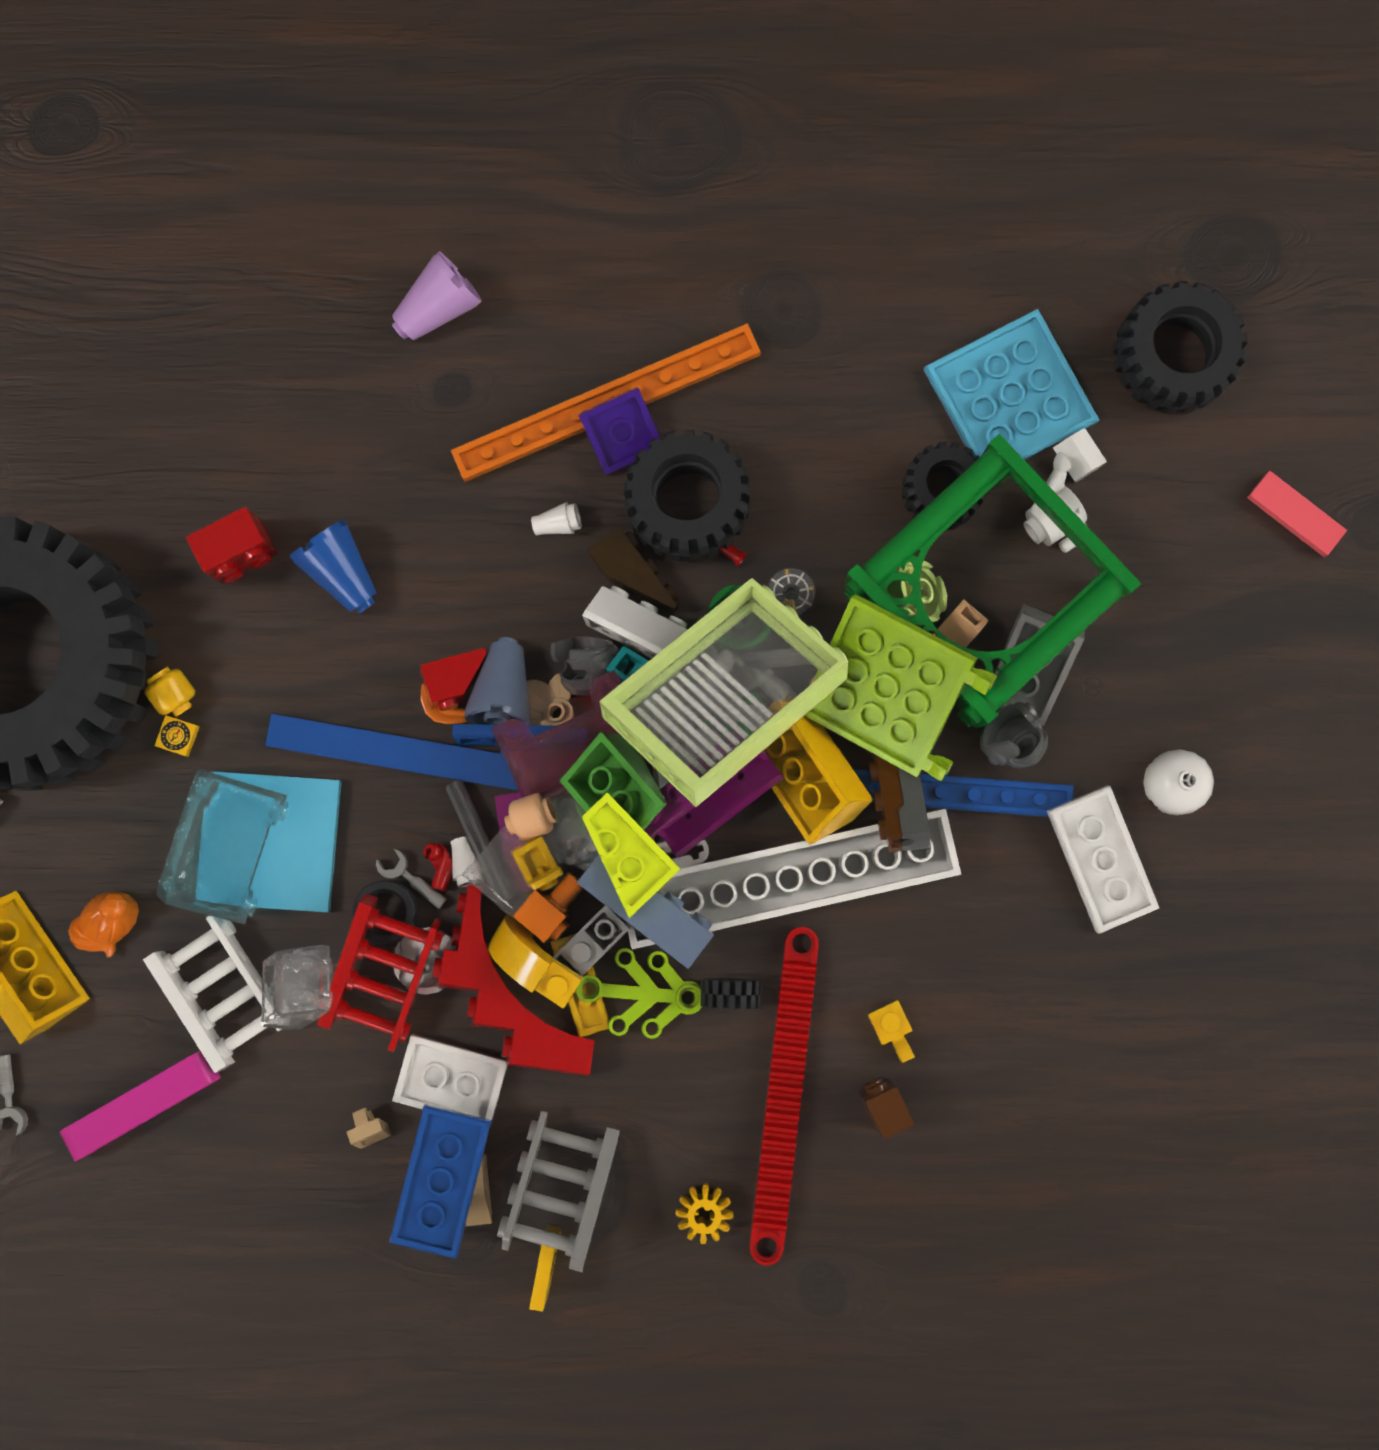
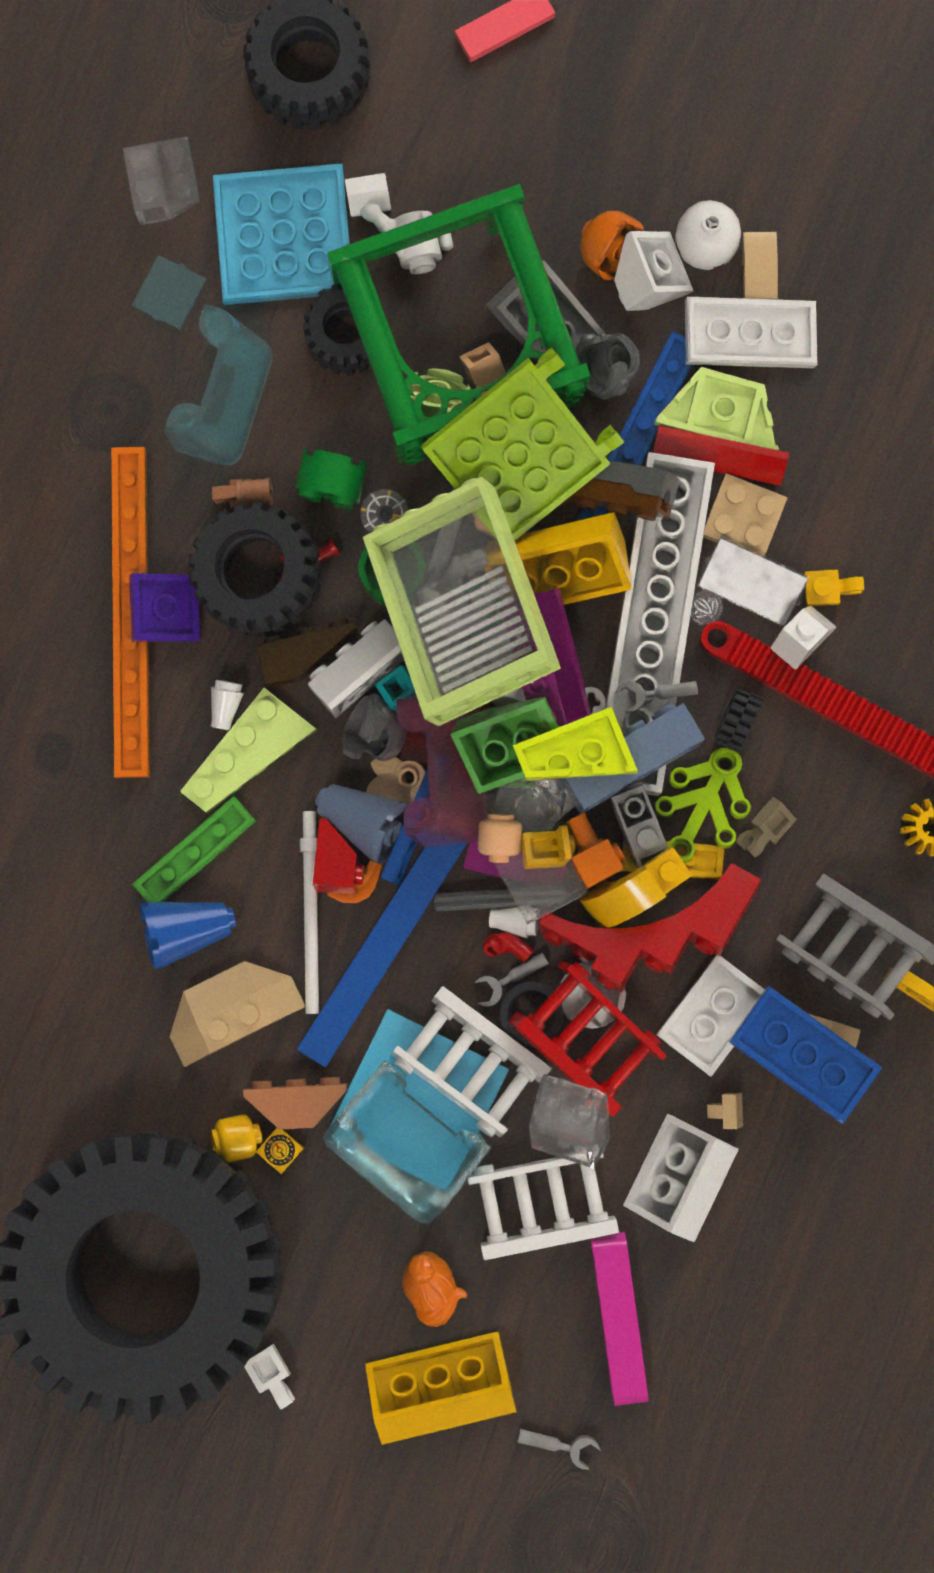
camera: 65 degrees left, 0 degrees up
(221, 732) = (296, 1103): none -> nougat slope
(232, 546) = (121, 1019): red brick -> none
(285, 642) = (231, 1009): none -> tan wedge
(288, 1110) = (680, 1178): none -> white slope
(341, 897) = (501, 1049): none -> white fence
(397, 676) = (308, 847): none -> white bar
(413, 550) = (195, 852): none -> bright green tile
(533, 561) = (249, 747): none -> yellowish green wing
(646, 1063) = (769, 826): none -> dark tan plate
(723, 910) = (660, 692): none -> light grey piece
(756, 460) = (244, 492): none -> nougat hinge
(801, 529) = (330, 478): none -> green brick
(826, 921) = (706, 607): none -> clear tile
(835, 1022) = (802, 636): none -> white slope
(840, 406) = (232, 395): none -> clear light blue windscreen
(868, 955) = (753, 581): none -> flat silver piece
(886, 1107) = (899, 620): reddish brown brick -> none
(913, 316) = (169, 292): none -> clear light blue piece
(926, 923) = (744, 514): none -> tan plate
(975, 880) = (729, 456): none -> red tile
(1011, 263) = (161, 179): none -> clear slope
(1016, 862) = (721, 408): none -> yellowish green wing
(1120, 742) = (650, 271): none -> white slope
(1130, 694) = (604, 240): none -> orange cylinder
(1170, 842) = (760, 265): none -> tan slope

